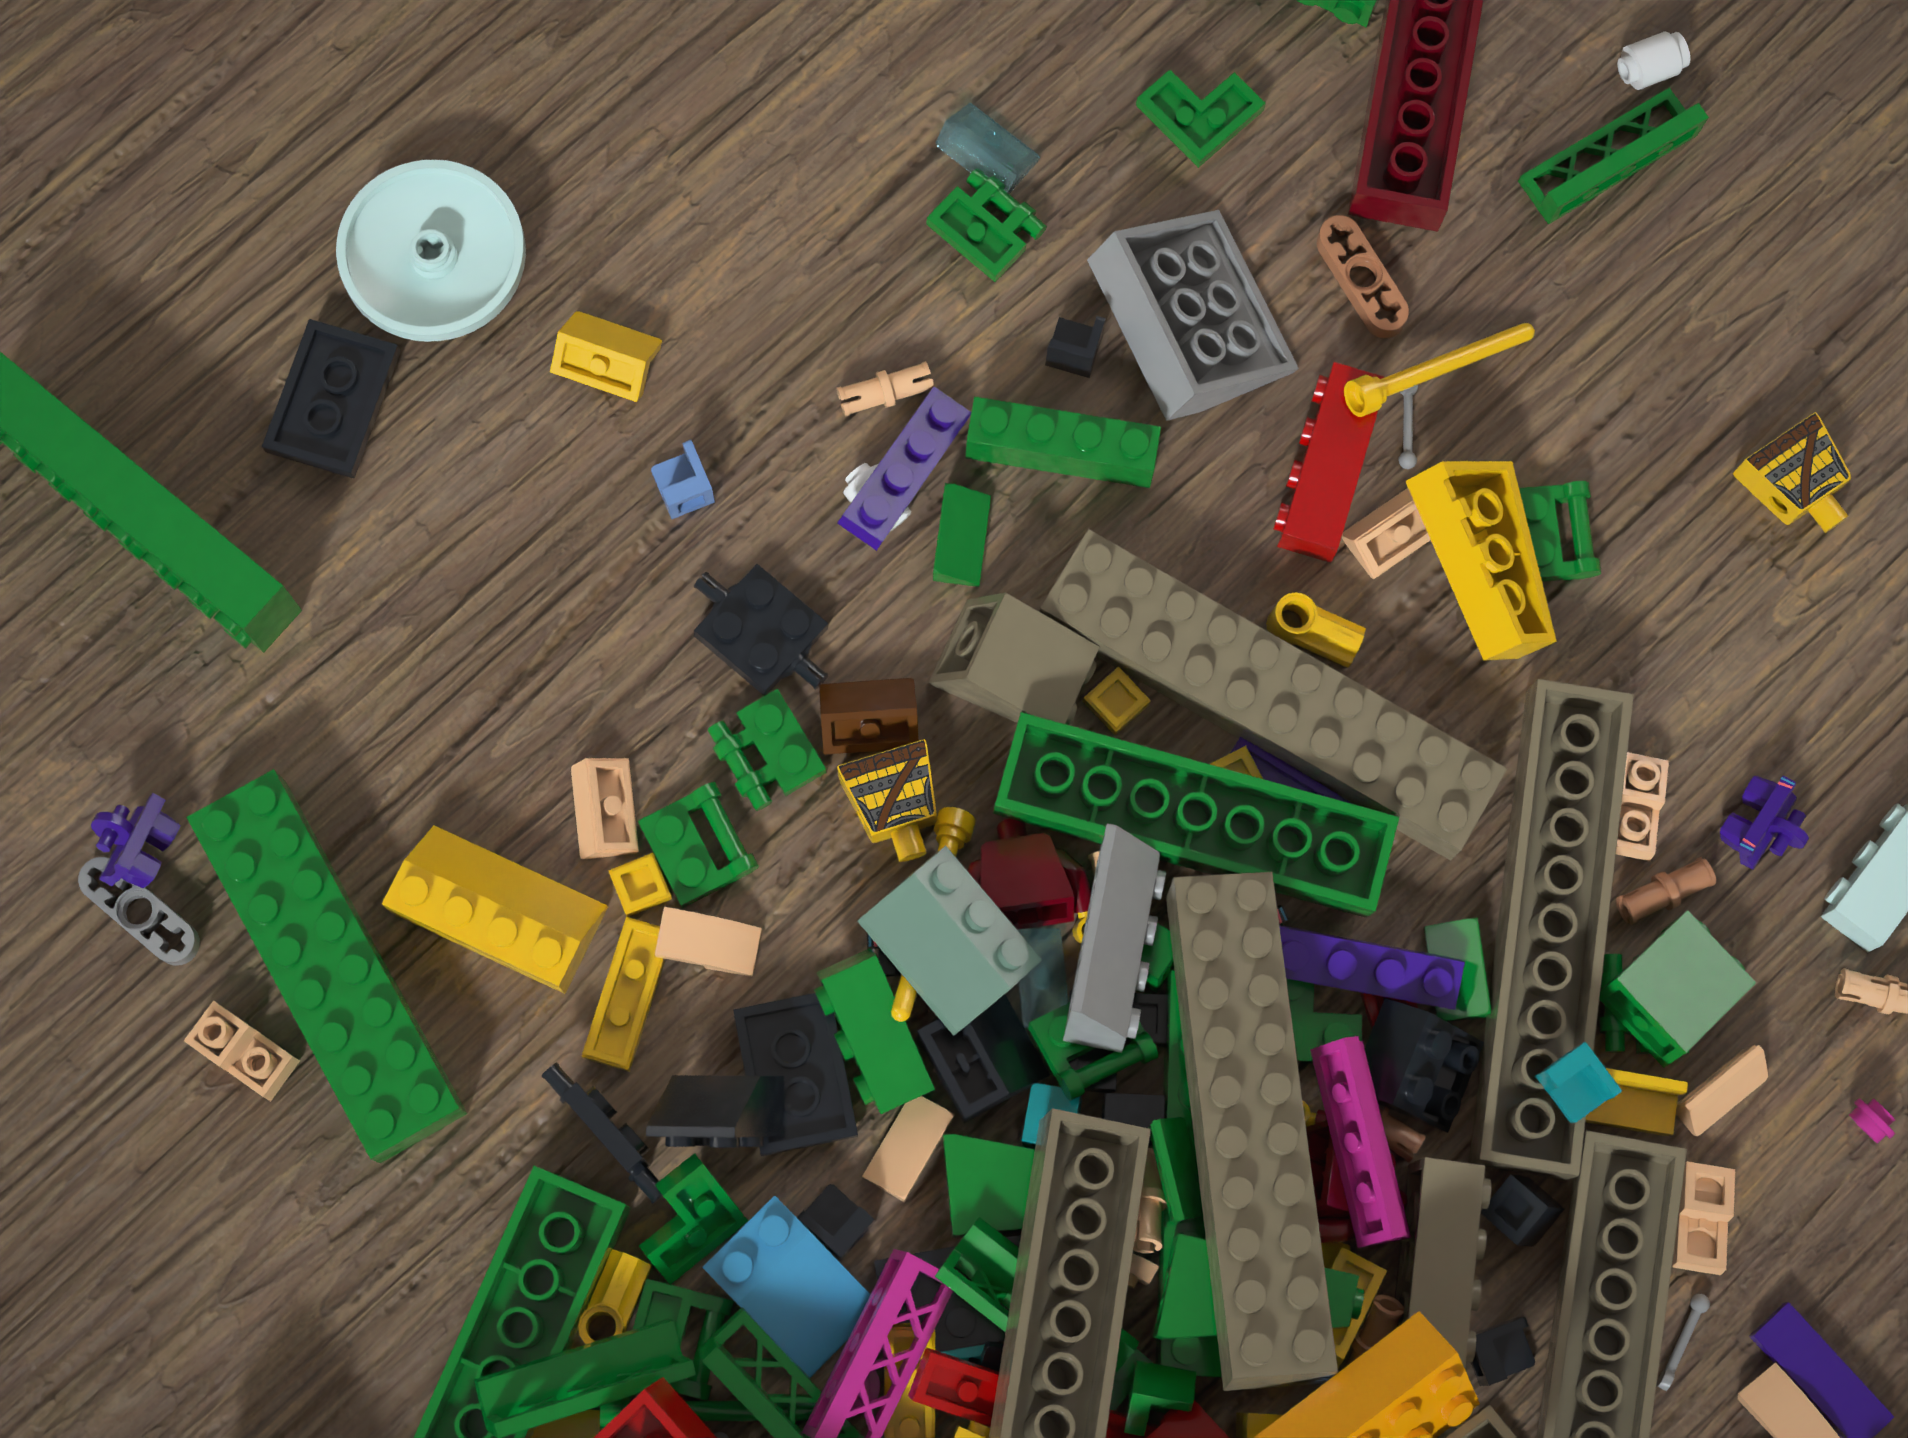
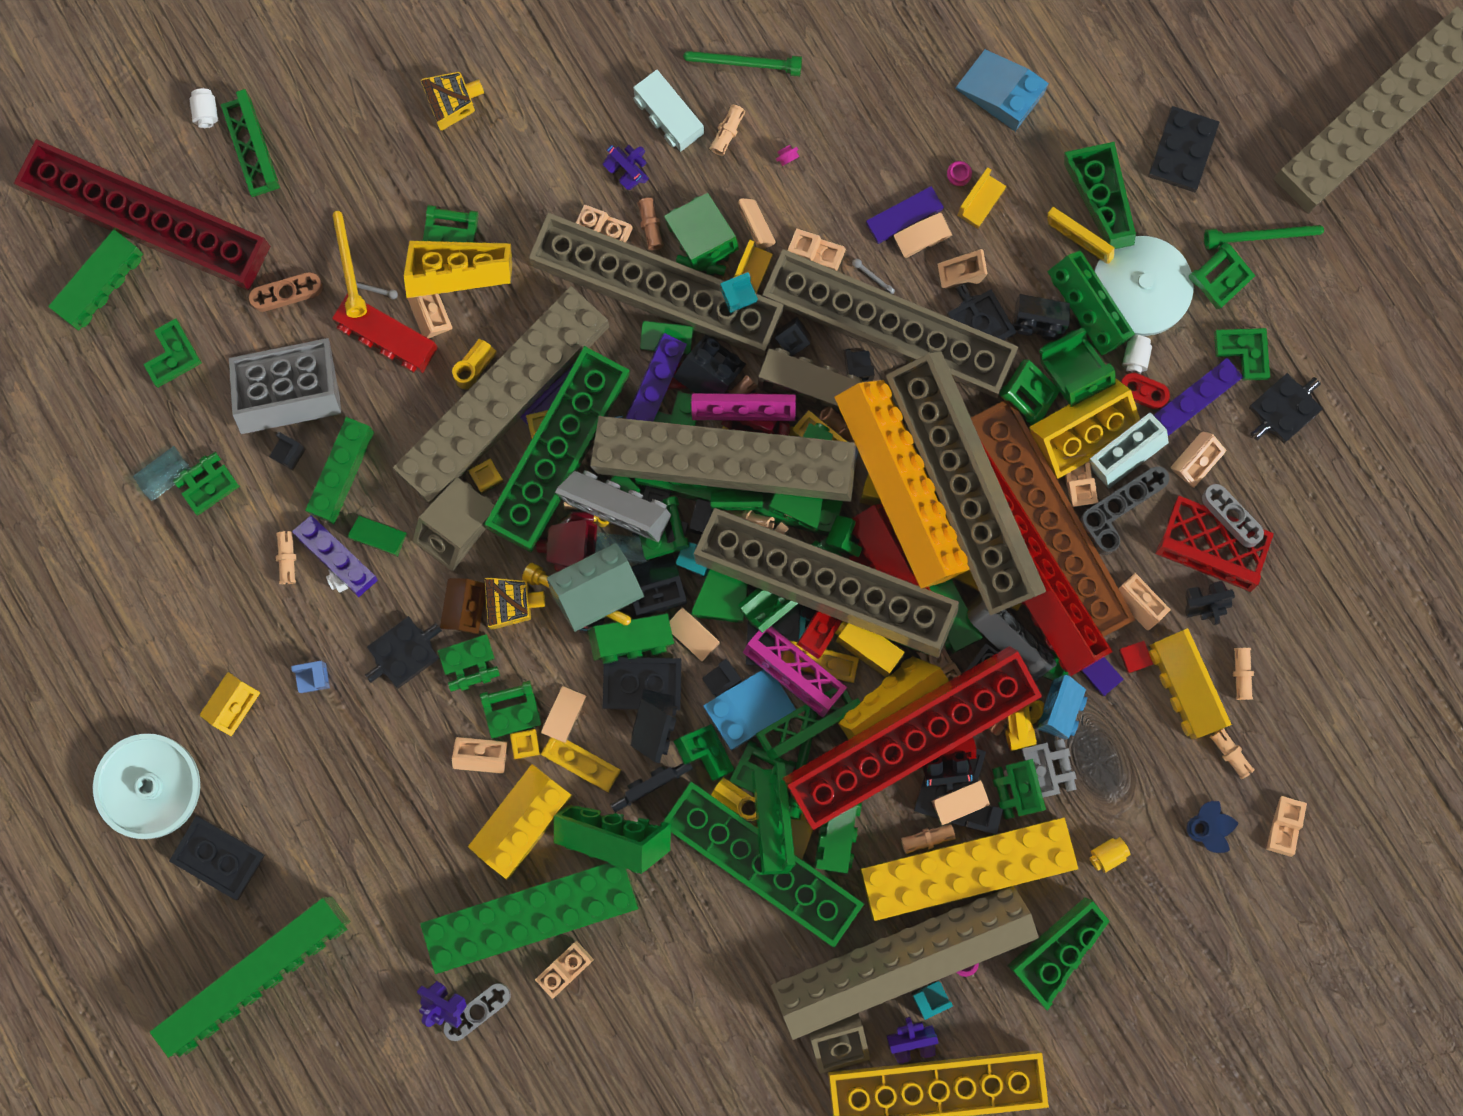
camera: 75 degrees left, 5 degrees up
(490, 1082) = (612, 837): none -> green wedge

